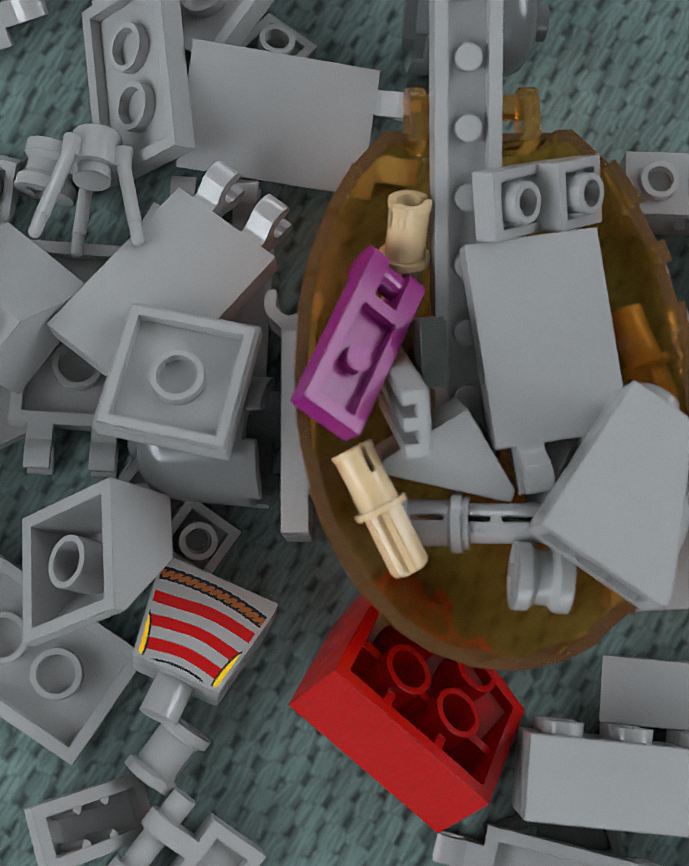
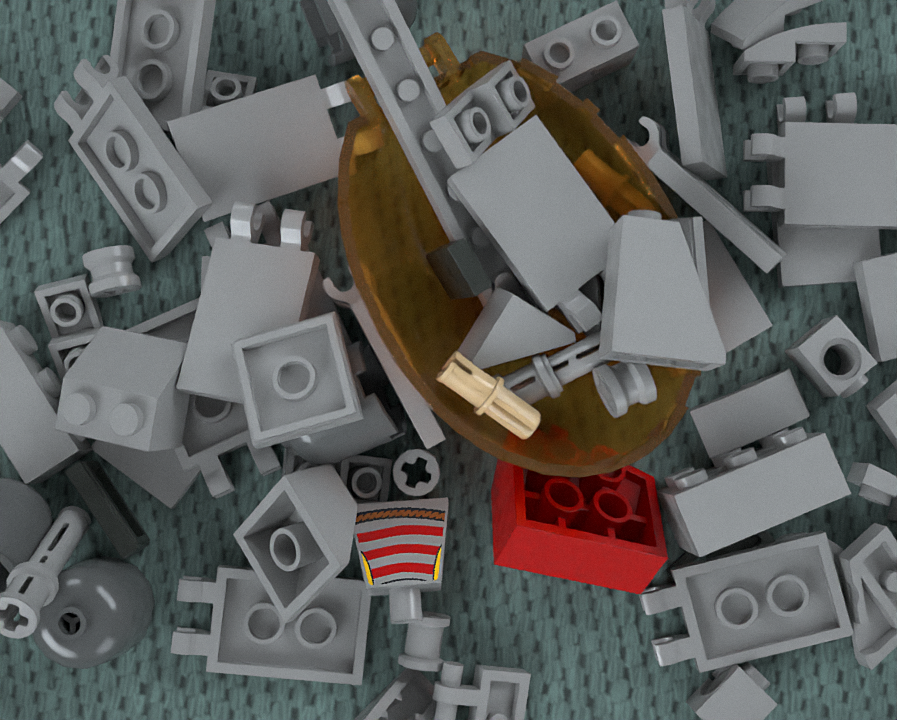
camera: 35 degrees left, 5 degrees up
(94, 159) = (142, 248): light grey plant -> none
(240, 557) = (401, 476): none -> light grey bush
(358, 345) = (413, 288): magenta plate -> none
(407, 233) = (407, 203): tan axle -> none
(408, 423) = (465, 310): light grey tile -> none

